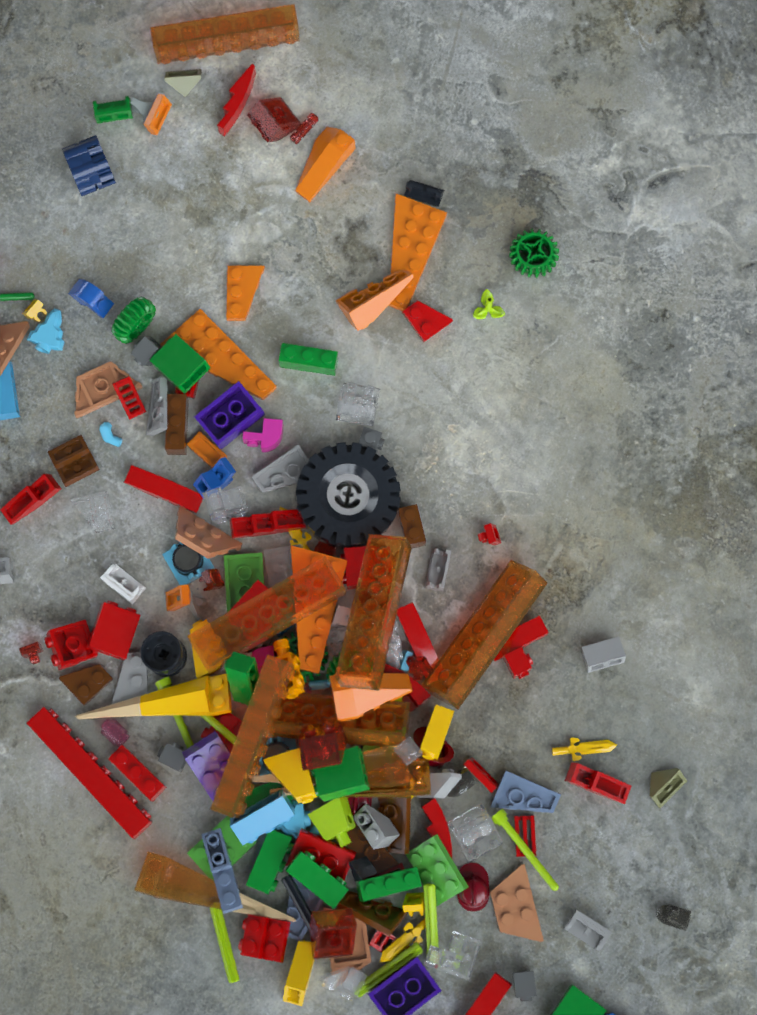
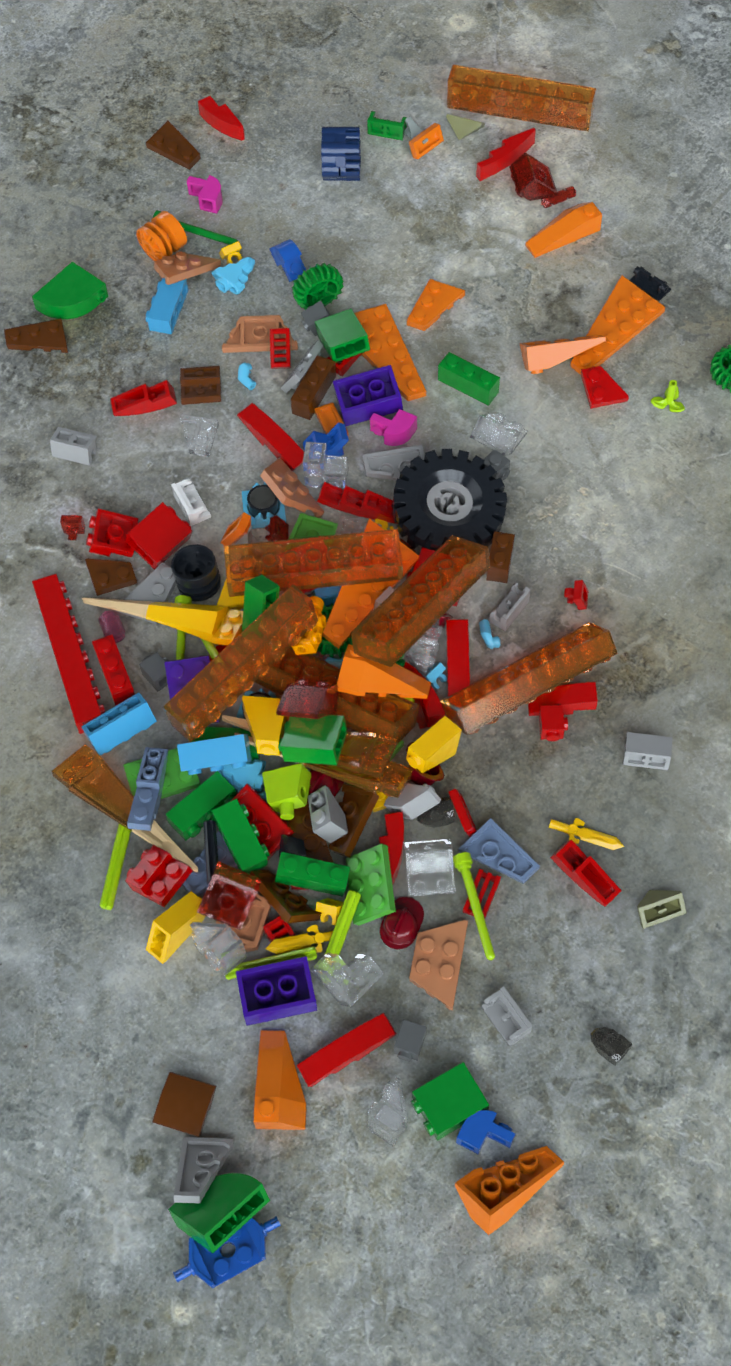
camera: 25 degrees right, 15 degrees down
(167, 821) = (119, 724): none -> dark azure brick
(408, 751) = (394, 743): clear plate -> none
(419, 666) = (446, 681): clear red tile -> none
(430, 603) = (485, 630): none -> medium azure arm

